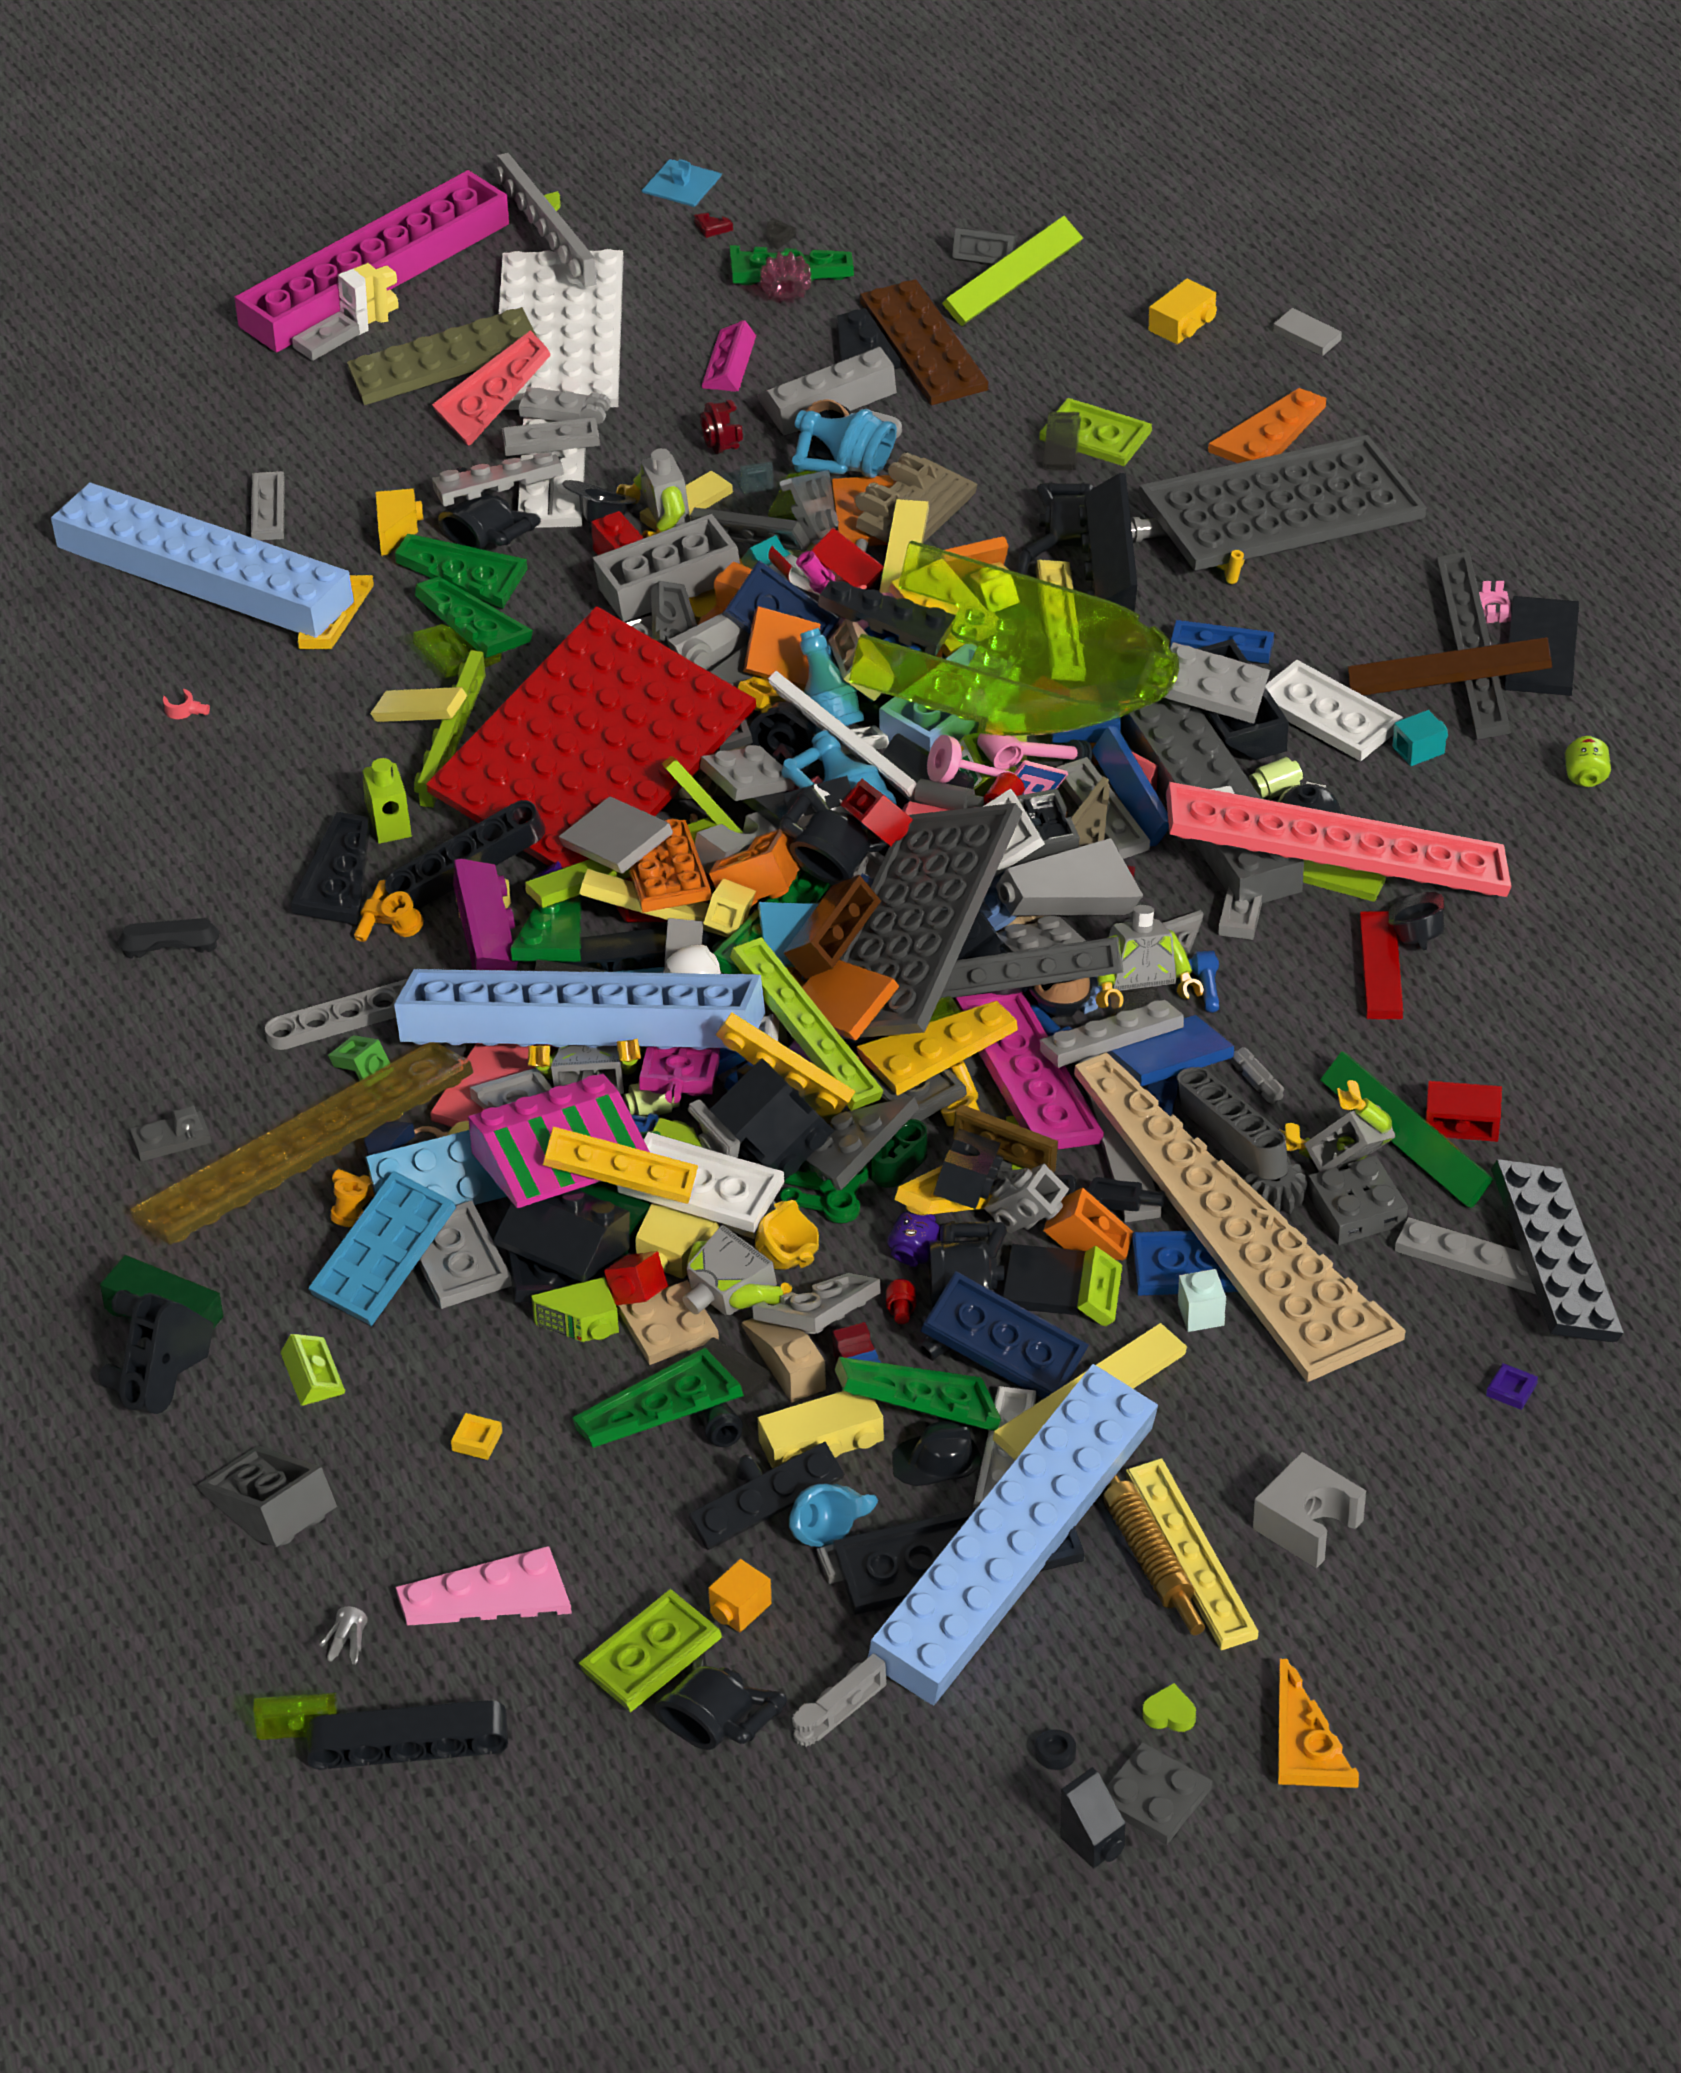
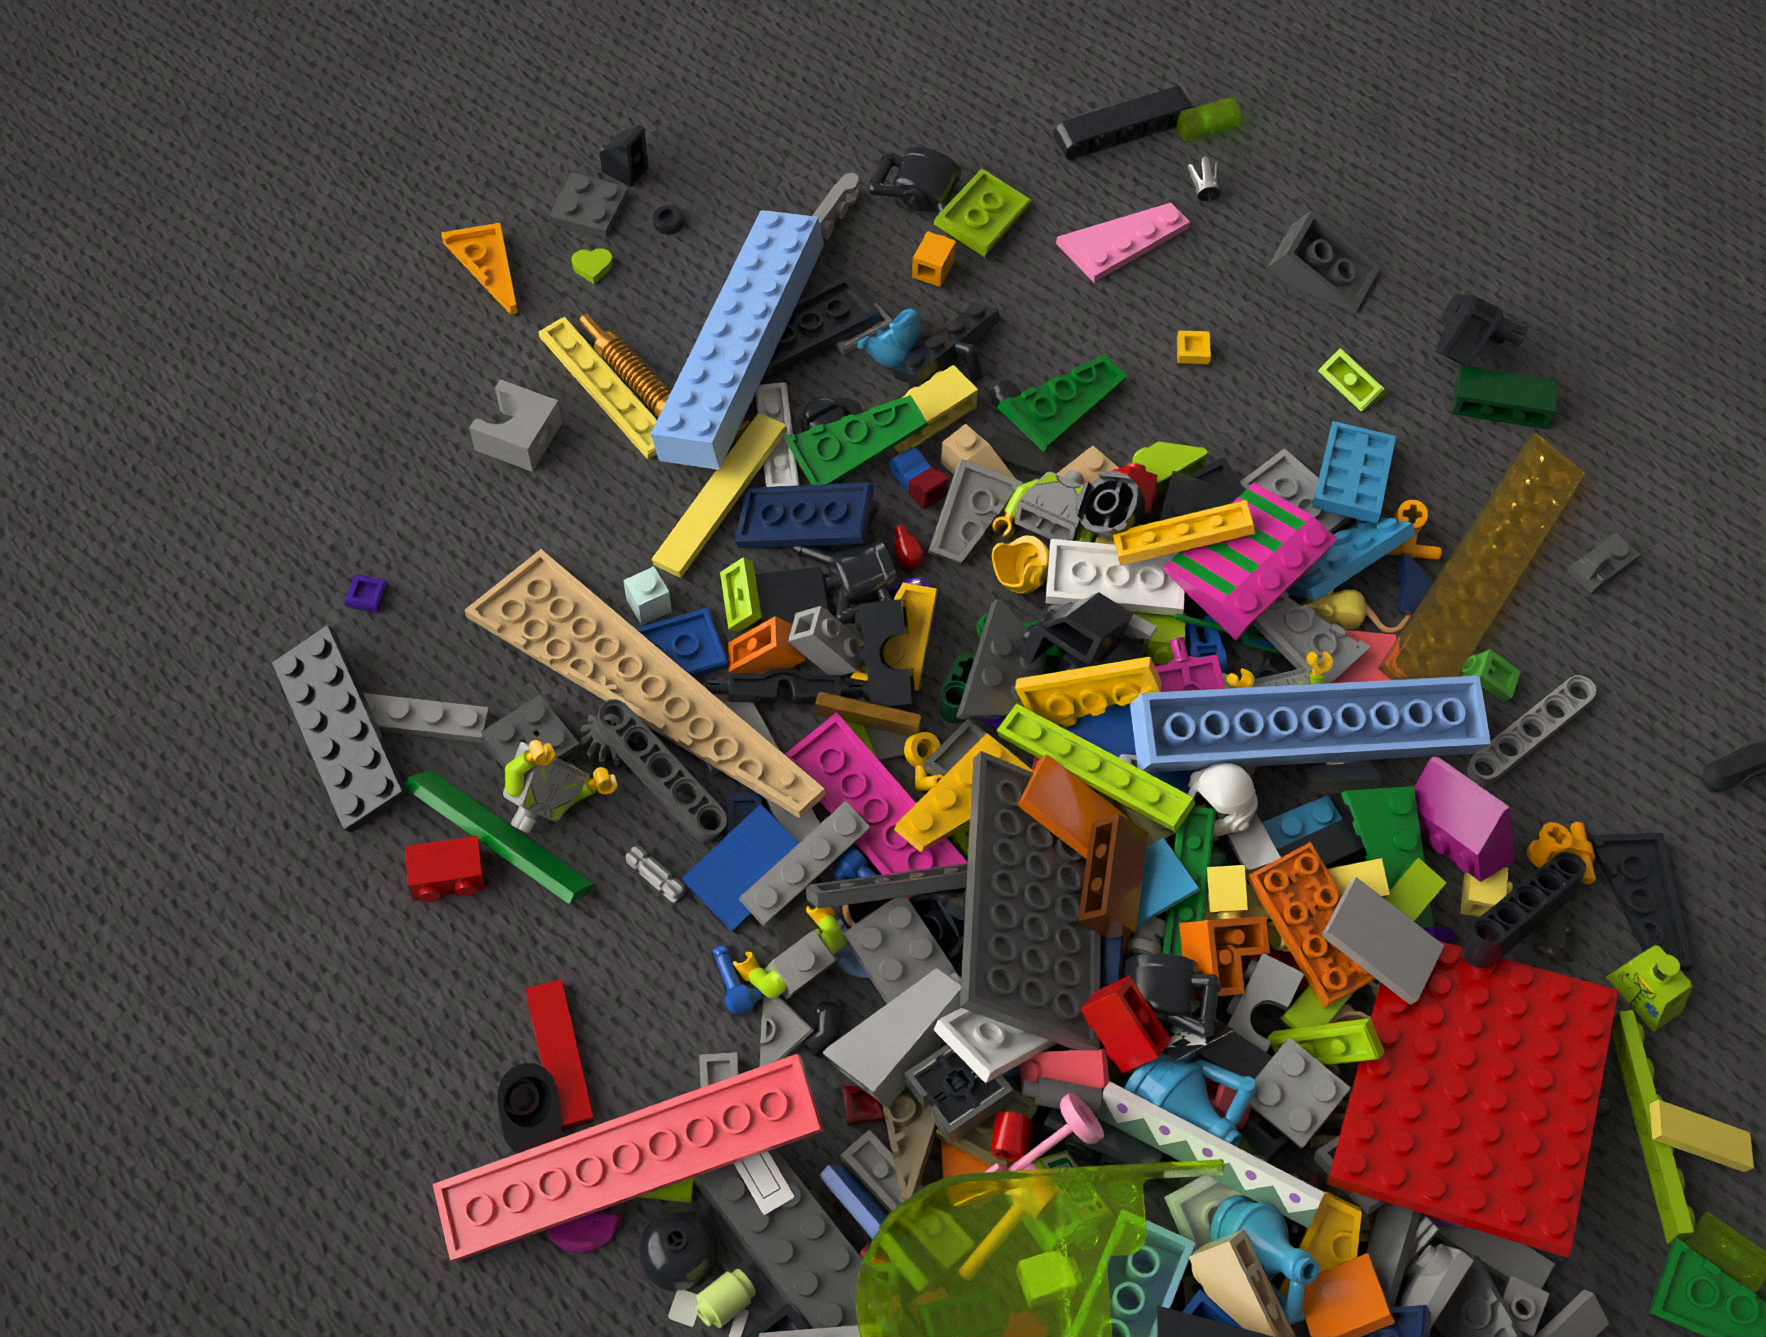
camera: 160 degrees right, 15 degrees up
(678, 1221) = (1110, 505): none -> black cylinder

